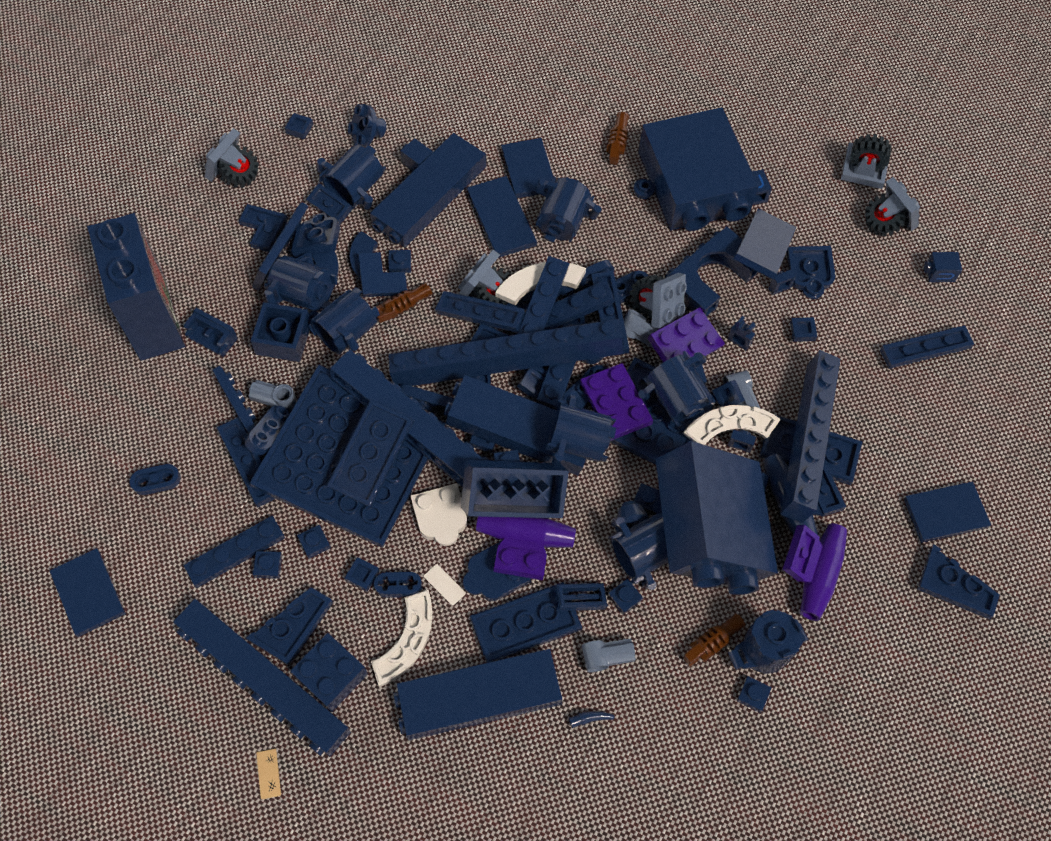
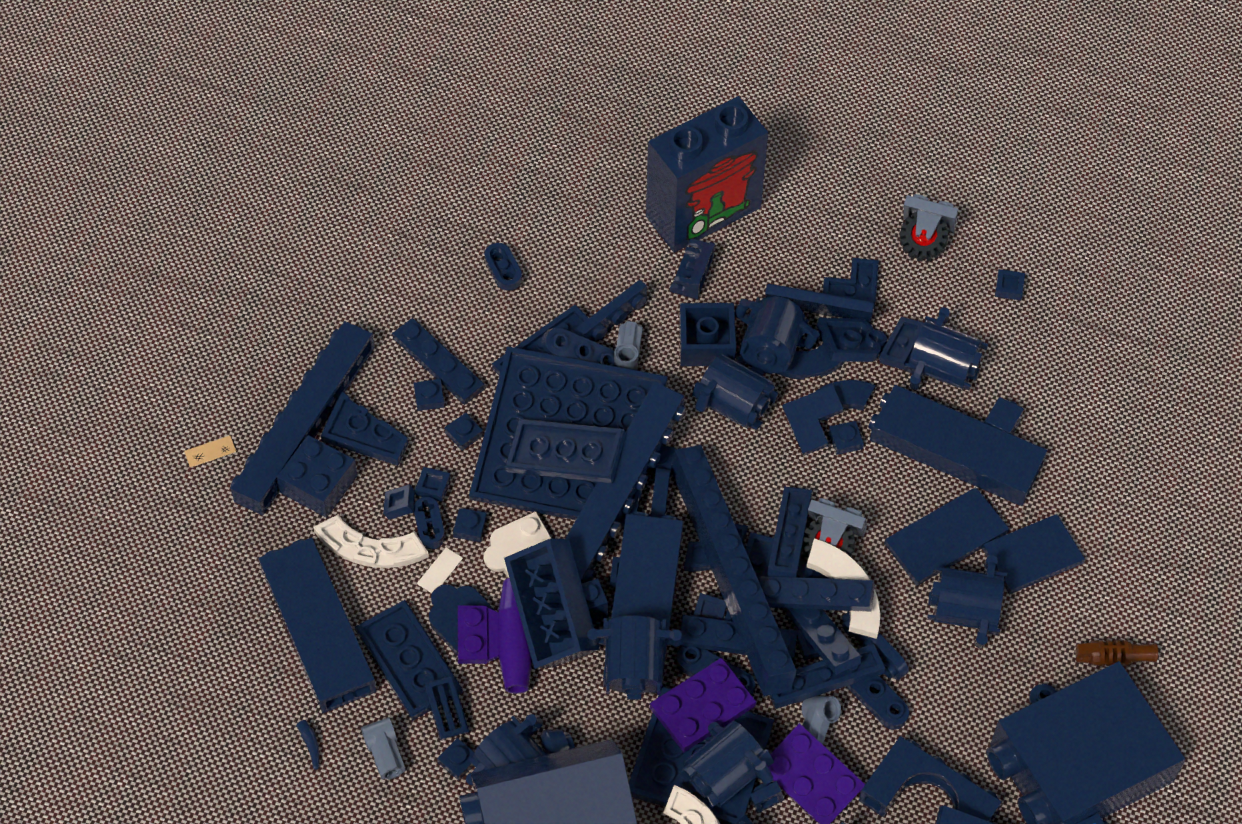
camera: 80 degrees right, 5 degrees down
(87, 592) = (369, 244): dark blue tile -> none
(366, 125) = (1029, 355): dark blue plate -> none
(373, 605) = (399, 502): none -> dark blue plate
(402, 302) = (784, 449): reddish brown hinge -> none
(408, 551) = (469, 525): none -> dark blue plate
(660, 298) = (860, 734): sand blue plate -> none

